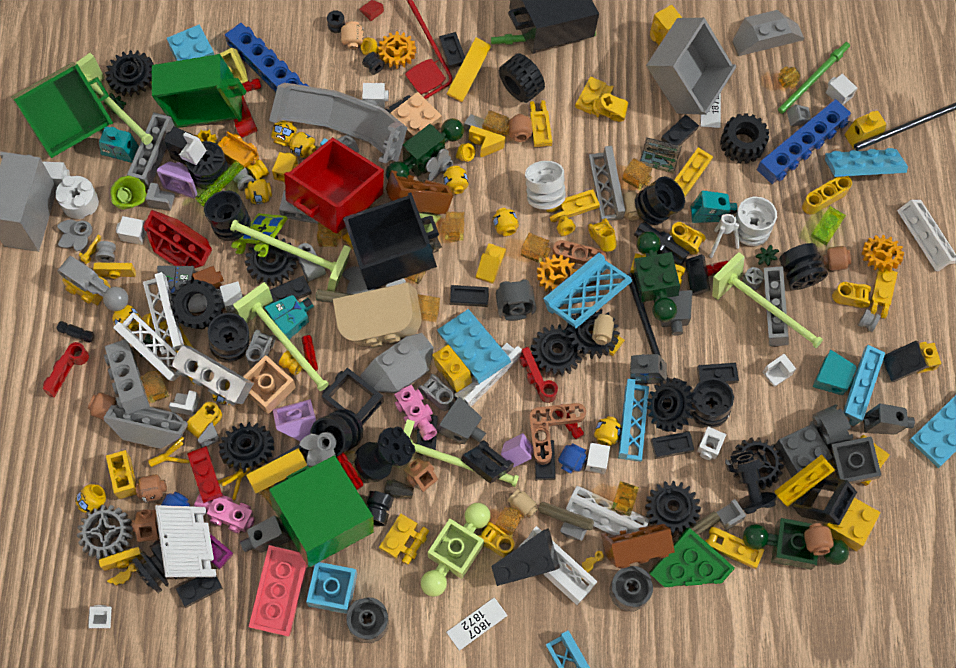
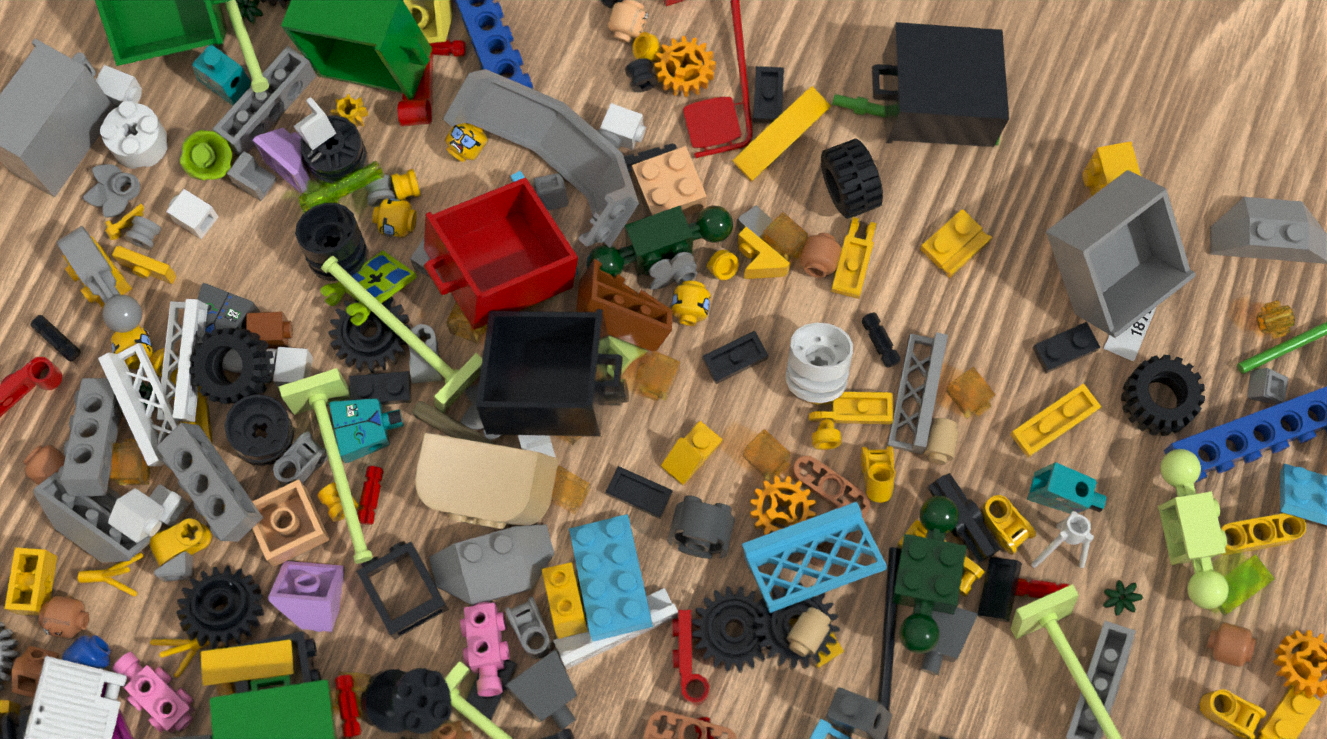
camera: 25 degrees right, 5 degrees up
(174, 410) = (136, 515): none -> white brick
(175, 143) = (296, 104): black brick -> none
(176, 241) = (247, 253): red wedge -> none
(204, 474) = (145, 625): red plate -> none
(236, 149) = (388, 146): light orange hinge -> none
(284, 163) = (447, 191): yellow brick -> none
(302, 145) = (487, 168): yellow head -> none
(317, 449) = (315, 658): light grey plate -> none
(344, 426) = (353, 639): black wheel -> none
(494, 200) = (735, 357): none -> black plate
(505, 222) = (738, 396): yellow head -> none
(573, 163) = (880, 340): none -> black axle
(611, 107) = (973, 270): yellow piece -> none
(659, 200) = (985, 452): black wheel -> none
(660, 155) = (1019, 374): clear smoke panel -> none
(756, 220) = (1128, 523): white wheel -> none
(756, 275) = (1088, 623): light grey wheel -> none
(791, 202) = (1193, 529): none -> yellowish green brick
(803, 266) = (1169, 641): black wheel -> none

